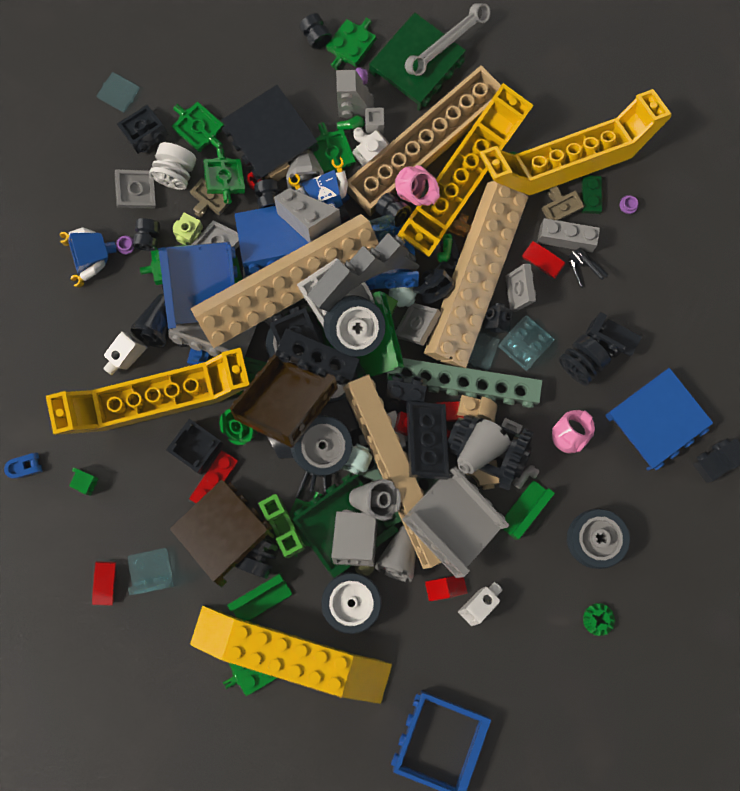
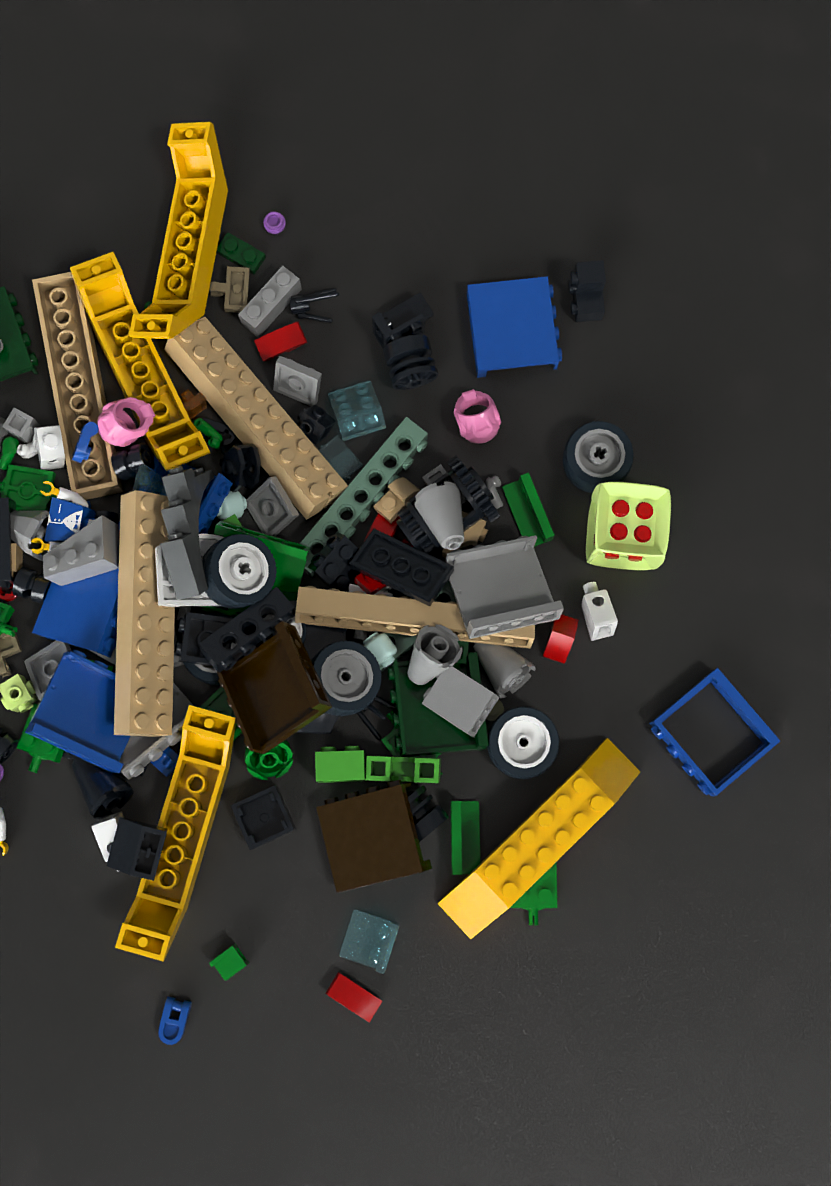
camera: 60 degrees left, 0 degrees up
(122, 371) = (137, 848): none -> black slope
(218, 471) = (305, 809): red plate -> none
(259, 479) = (340, 765): none -> bright green brick
(379, 170) = (82, 449): none -> blue plate
(558, 591) = (628, 526): none -> yellowish green piece
(590, 621) = (688, 506): green gear -> none

